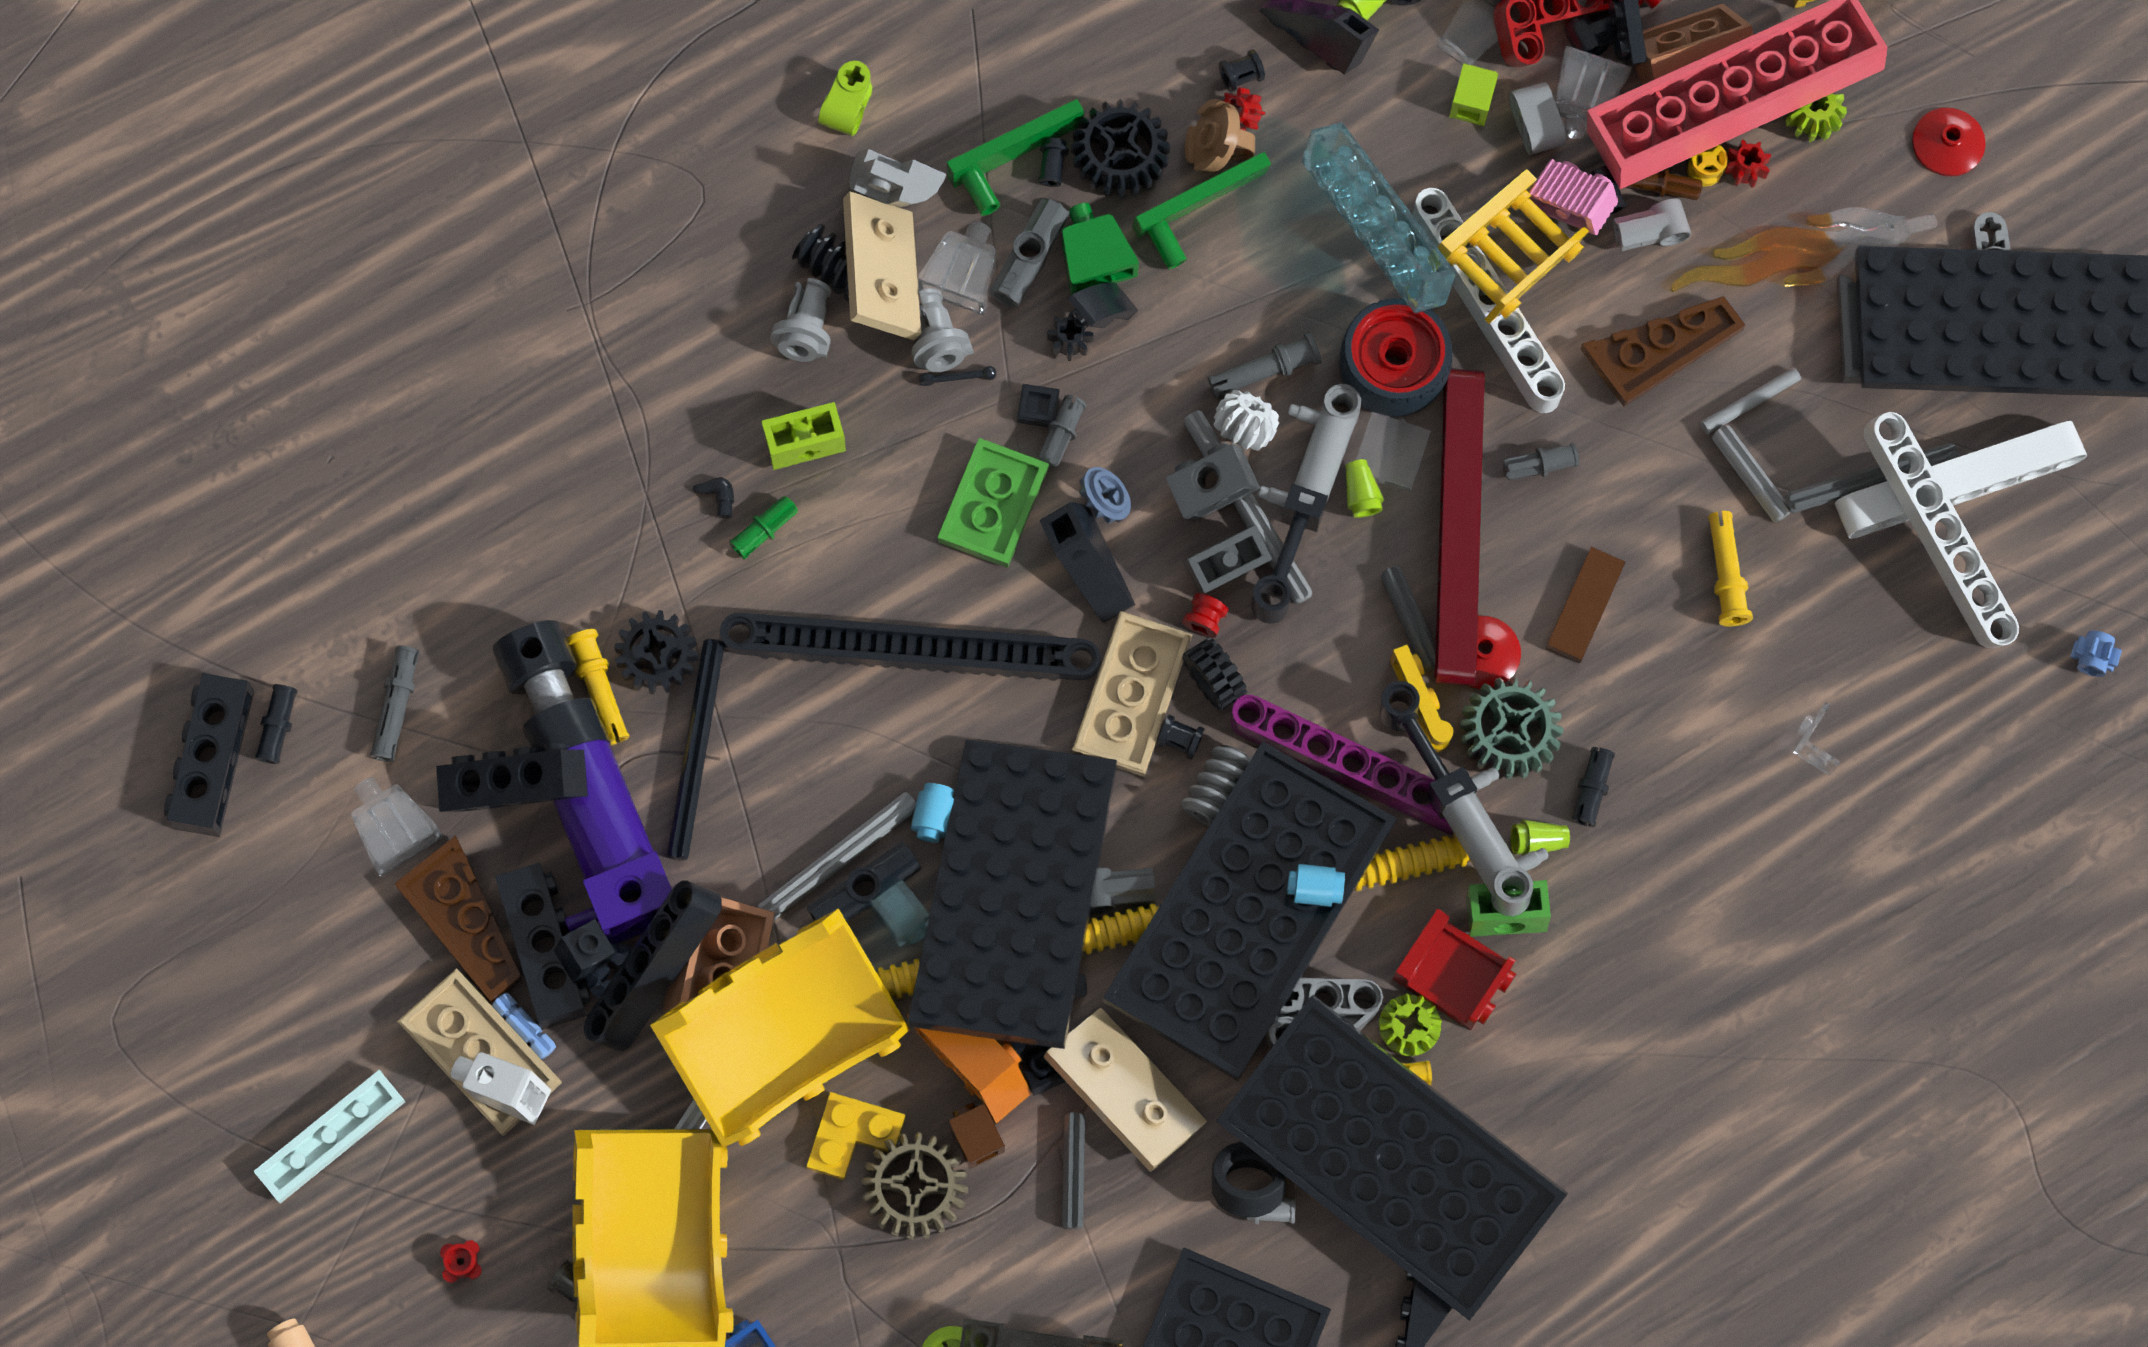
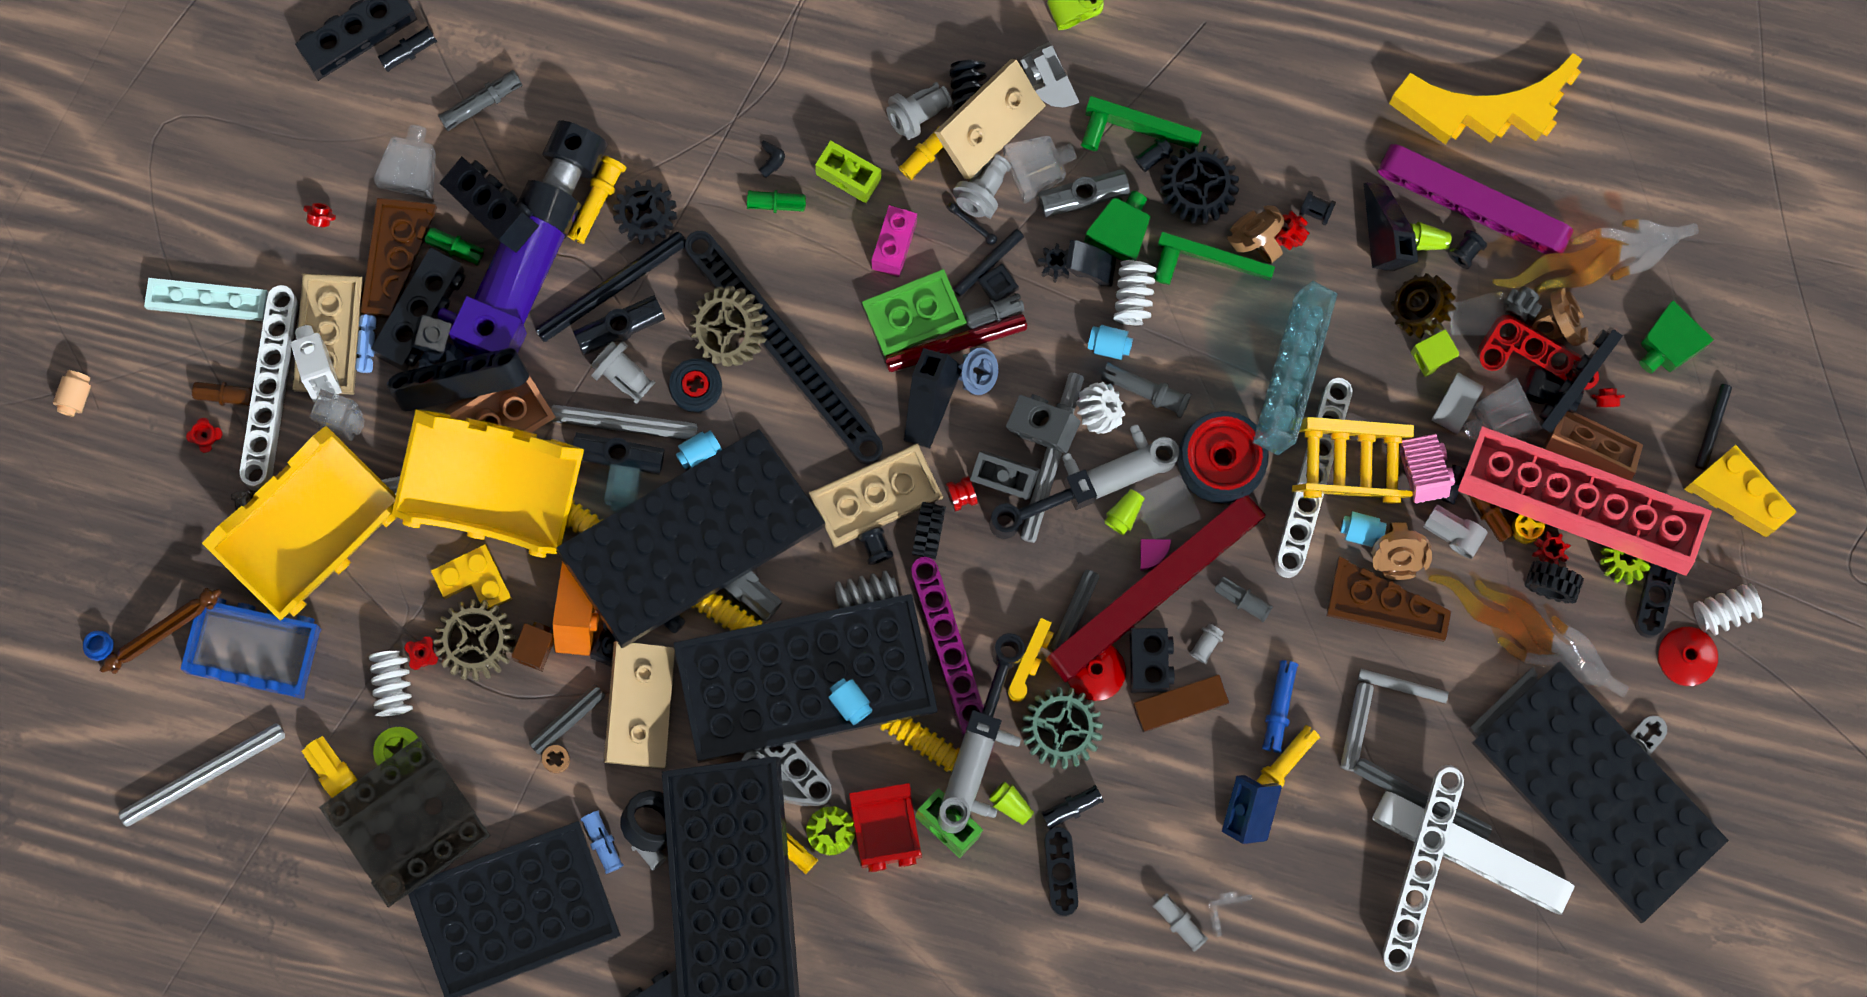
camera: 45 degrees right, 5 degrees up
(355, 953) = (319, 215): none -> red plate
(437, 1206) = (222, 393): none -> reddish brown axle
(464, 1141) = (264, 374): none -> white beam
(512, 855) = (454, 246): none -> green axle
(572, 1109) = (338, 414): none -> clear brick
(734, 796) = (638, 317): none -> black piece
(789, 812) = (621, 371): none -> light grey piece
(834, 660) = (725, 348): none -> dark tan gear
(851, 356) = (921, 156): none -> yellow pin
(881, 1303) = (389, 683): none -> white piece
(882, 1259) = (418, 661): none -> red plate
(886, 763) = (702, 398): none -> black bush
(909, 456) = (894, 241): none -> dark pink brick
(1009, 395) = (988, 262): none -> black bar
(1057, 490) = (958, 341): none -> dark red axle
(1110, 1225) = (557, 750): none -> medium nougat bush
(1165, 294) = (1133, 292): none -> white piece
(1190, 357) = (1110, 342): none -> medium azure brick
(1223, 1245) = (602, 842): none -> medium blue pin
(1421, 501) = (1152, 552): none -> dark pink tile
(1438, 67) = (1423, 305): none -> dark brown gear
(1513, 600) = (1142, 660): none -> black brick
(1551, 530) = (1206, 643): none -> light grey pin
(1577, 301) = (1362, 529): none -> medium azure brick
(1630, 286) = (1401, 552): none -> medium nougat tile
(1644, 869) = (1070, 893): none -> black beam
(1671, 522) = (1277, 718): none -> blue pin
(1744, 632) = (1251, 810): none -> dark blue panel
(1781, 185) = (1554, 582): none -> black tyre
(1789, 790) = (1180, 922): none -> light grey pin
(1893, 131) = (1659, 617): none -> black beam
(1941, 68) = (1728, 608): none -> white piece

